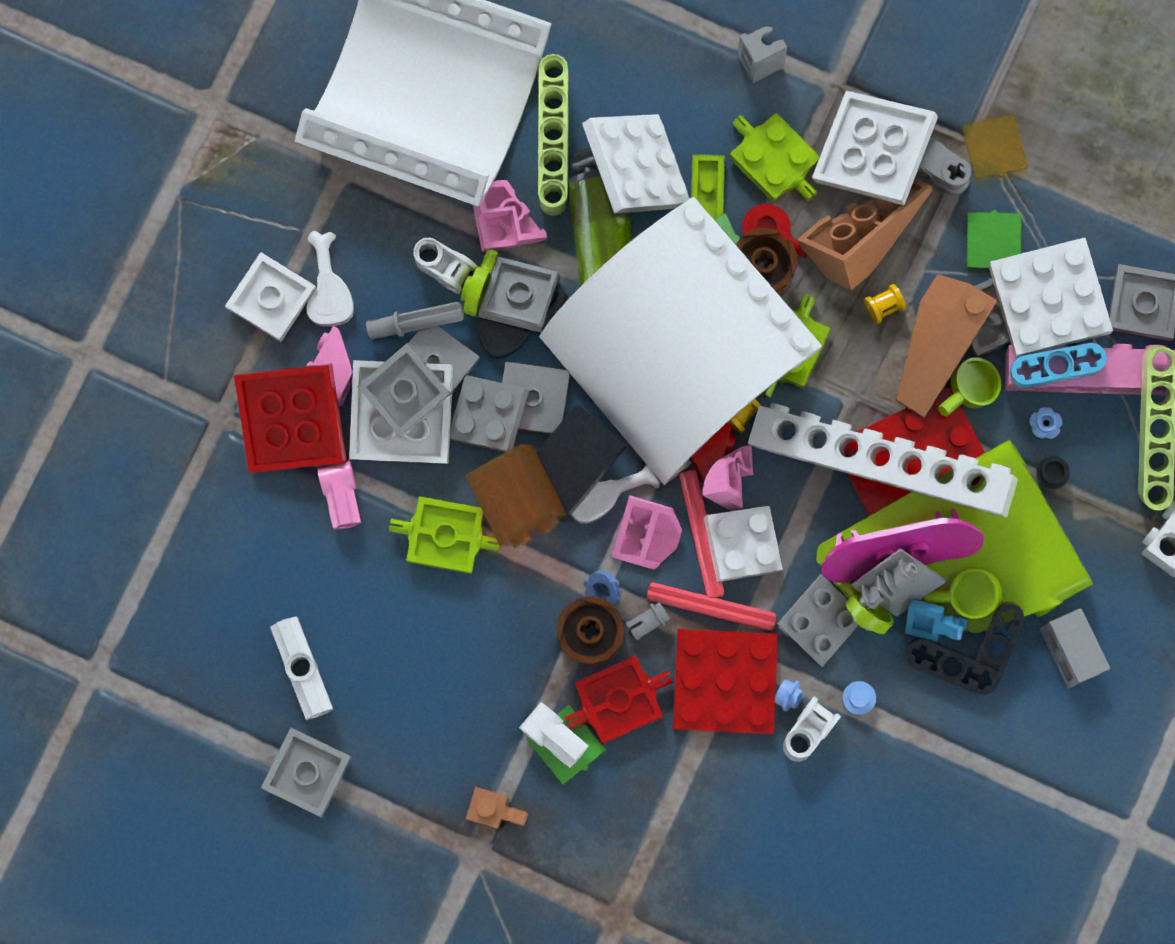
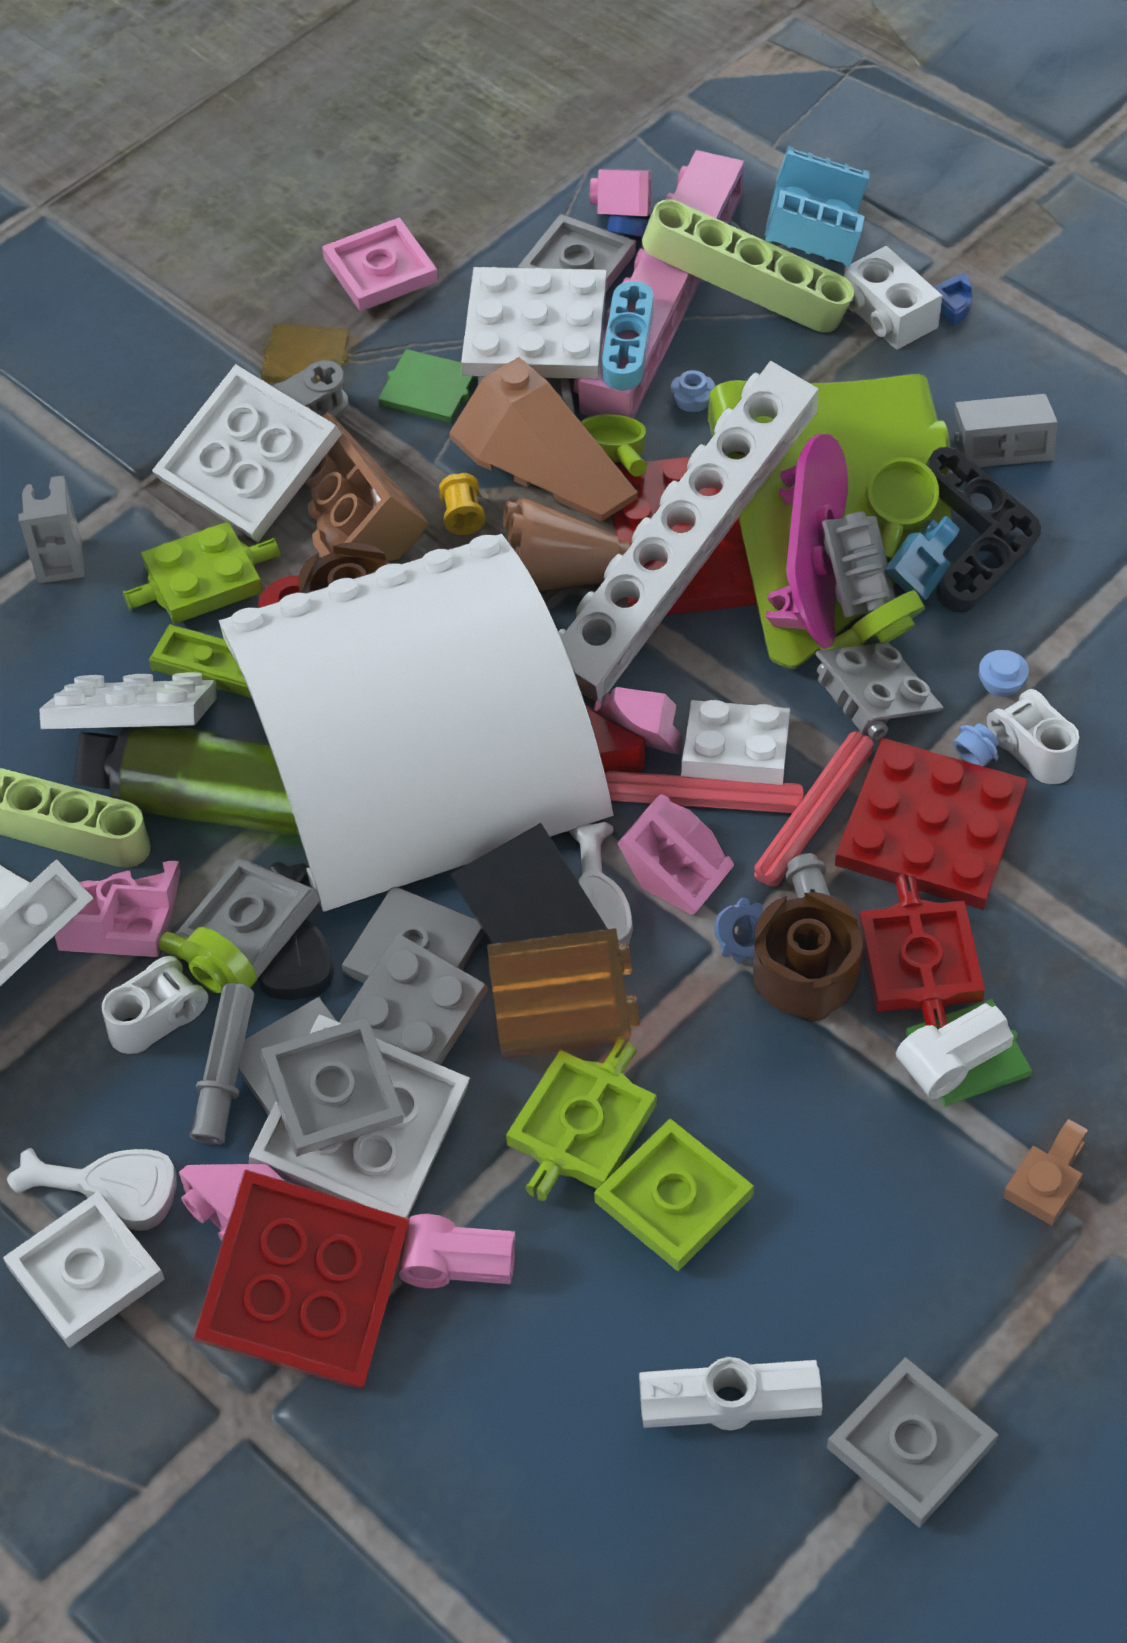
camera: 75 degrees left, 25 degrees down
(414, 601) = (674, 1194): none -> lime plate
(856, 380) = (558, 547): none -> nougat cone
(1093, 165) = (380, 264): none -> bright pink plate

